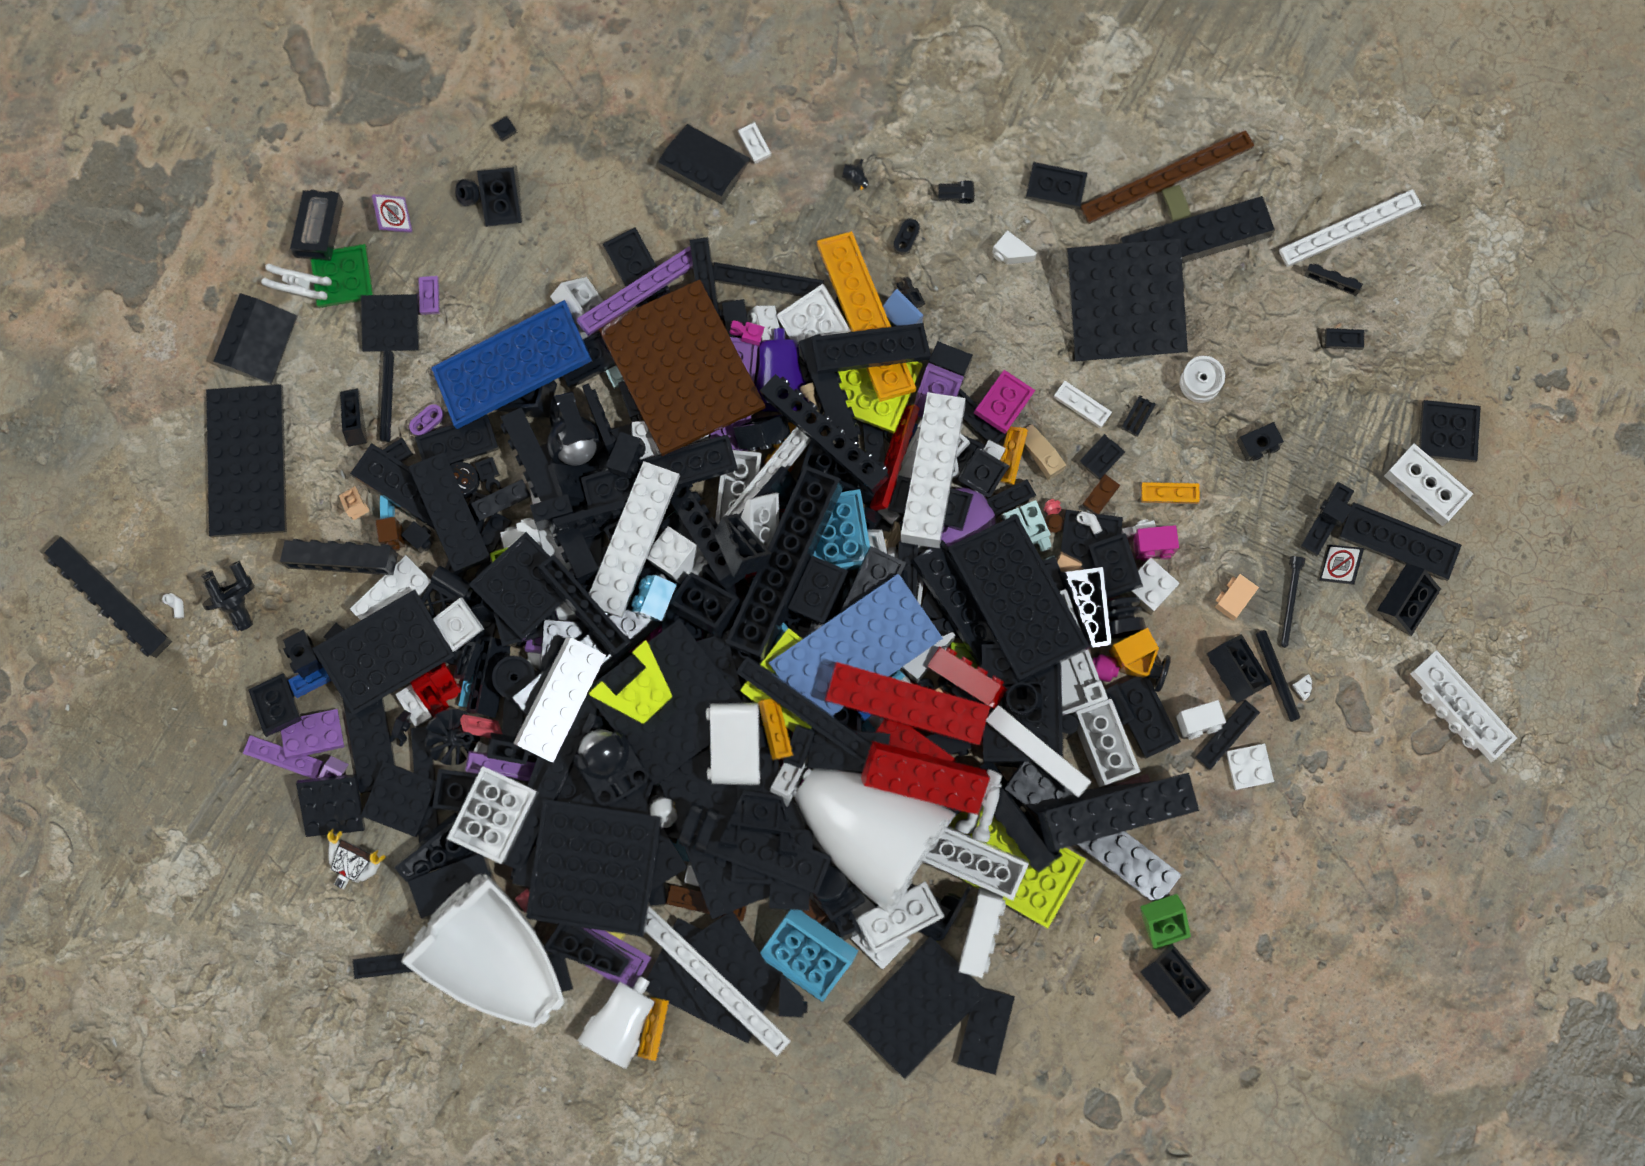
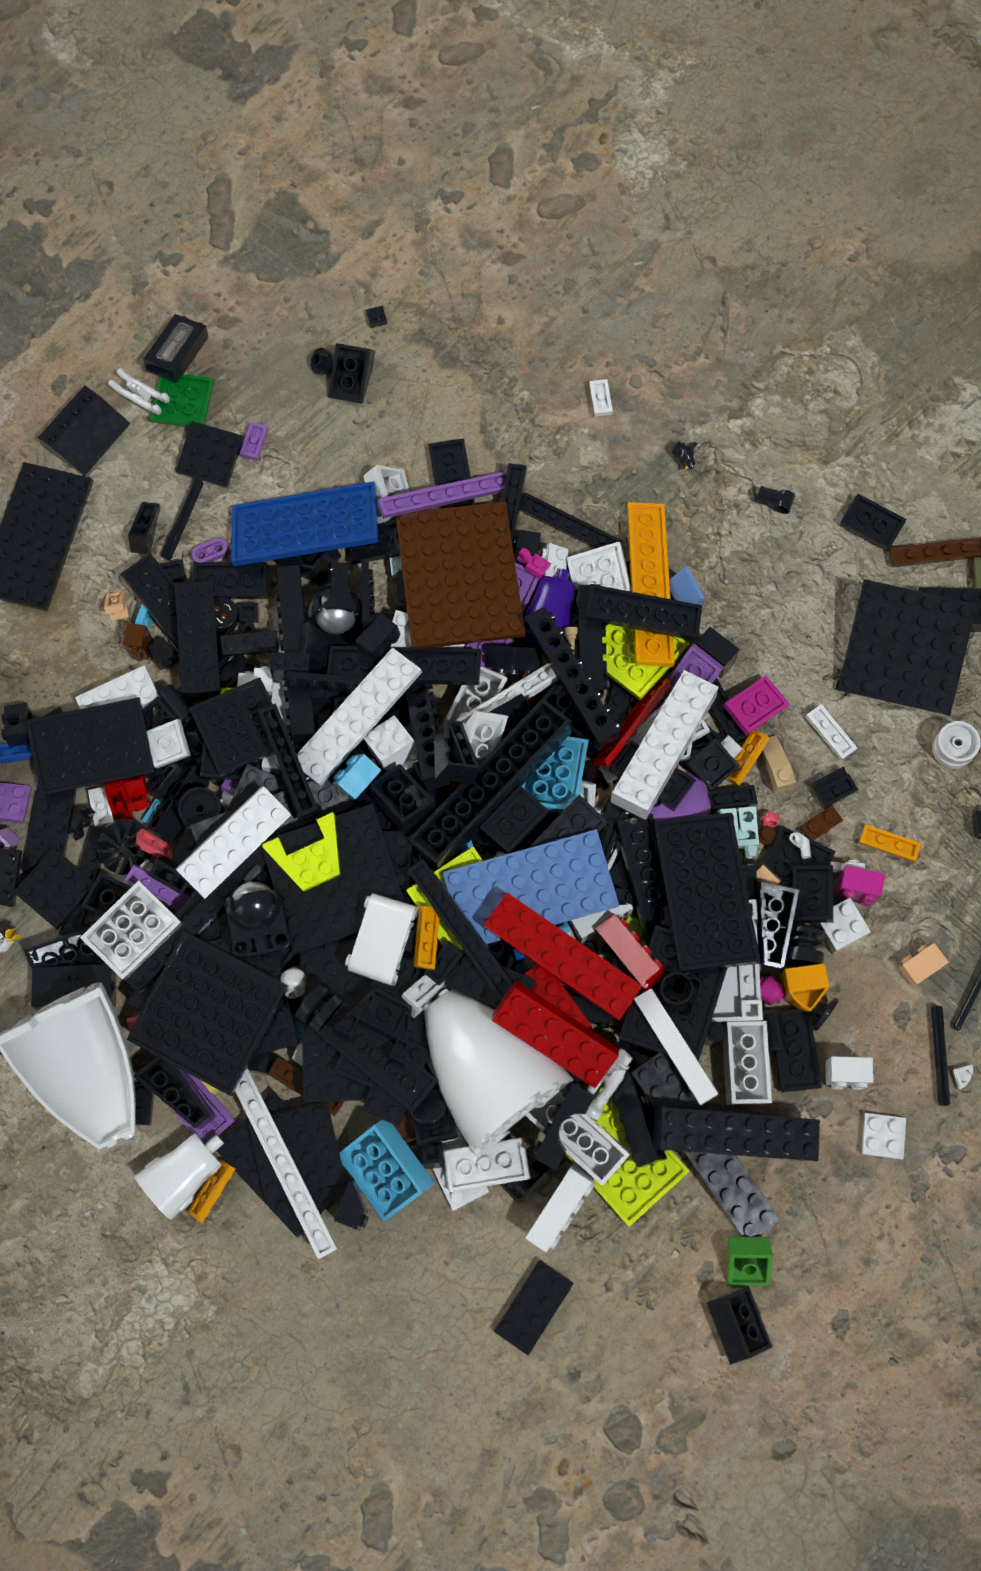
camera: 20 degrees right, 5 degrees down
(339, 557) = (83, 647): black brick -> none
(391, 213) = (247, 358): piece -> none
(703, 163) = (546, 401): black slope -> none
(906, 237) = (713, 526): black plate -> none
(911, 293) = (700, 577): black plate -> none
(917, 1007) = (473, 1261): black plate -> none
(956, 884) = (576, 1102): none -> black arch
(1012, 250) = (811, 568): white slope -> none
(1146, 402) = (893, 750): black tile -> none
(1227, 735) = (871, 1097): black tile -> none
(1238, 668) = (903, 1035): black slope -> none

